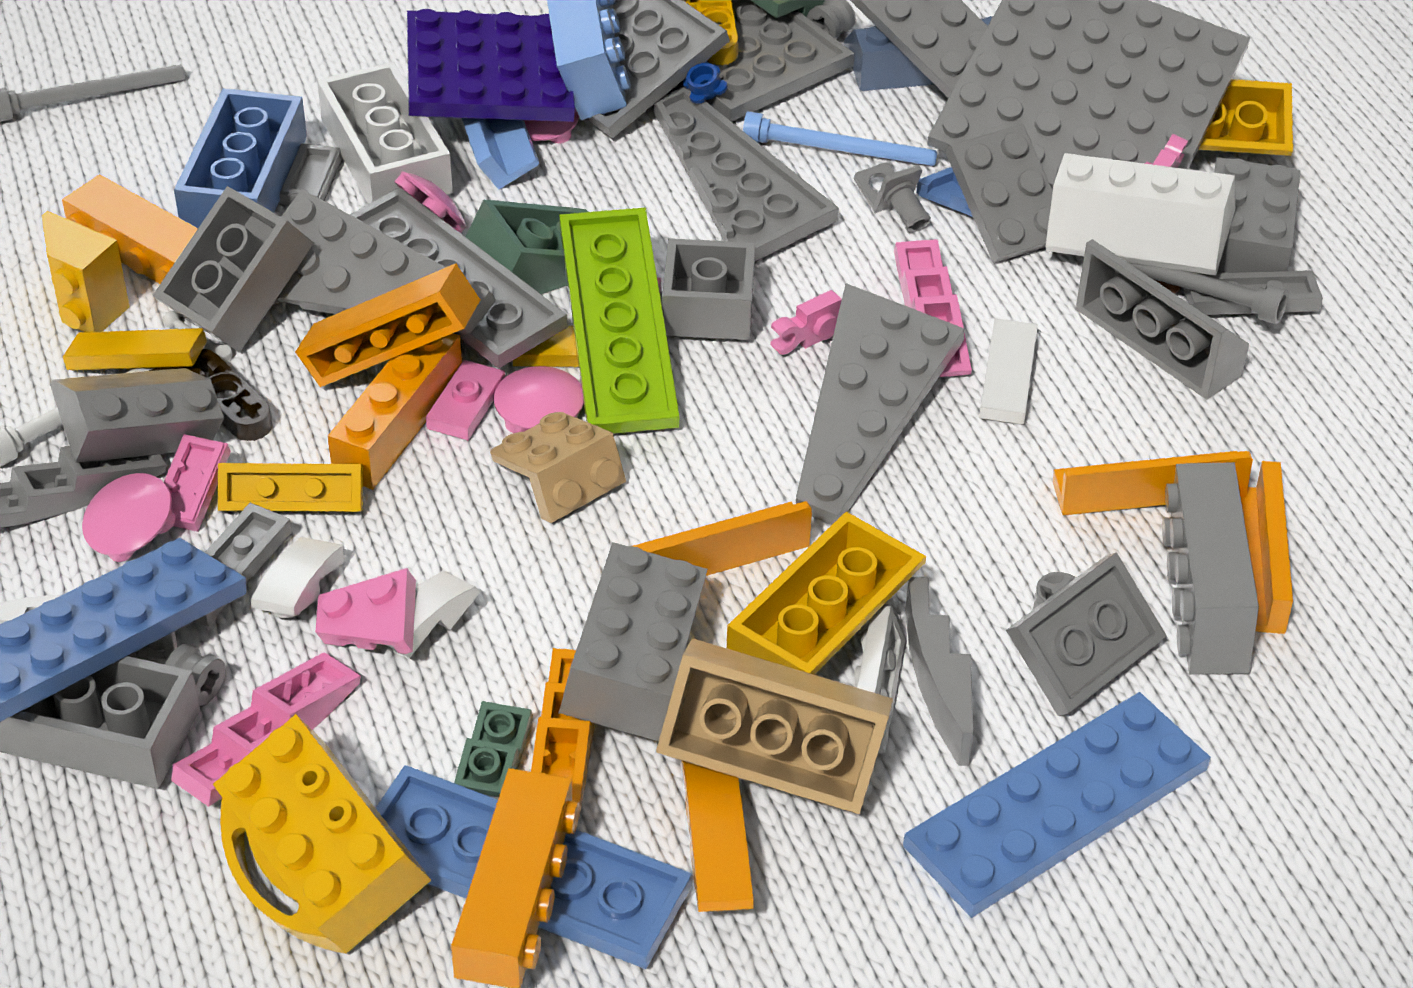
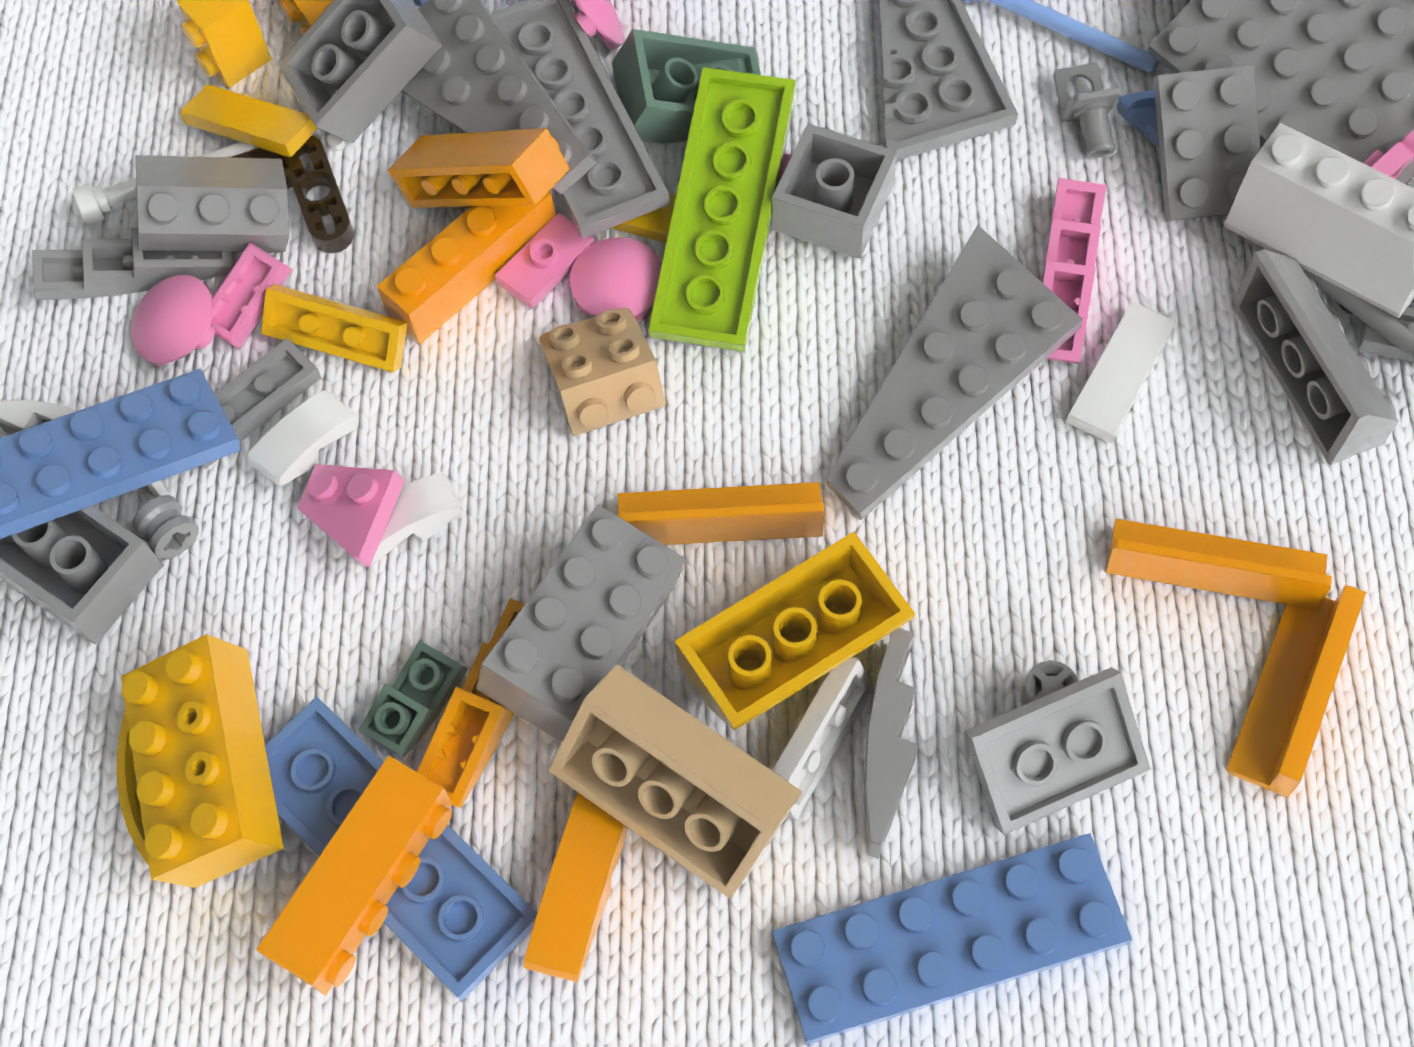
camera: 25 degrees right, 20 degrees up
(306, 690) = (217, 606): bright pink slope -> none
(813, 323) = (928, 259): bright pink plate -> none
(1210, 569) = (1224, 710): light grey brick -> none

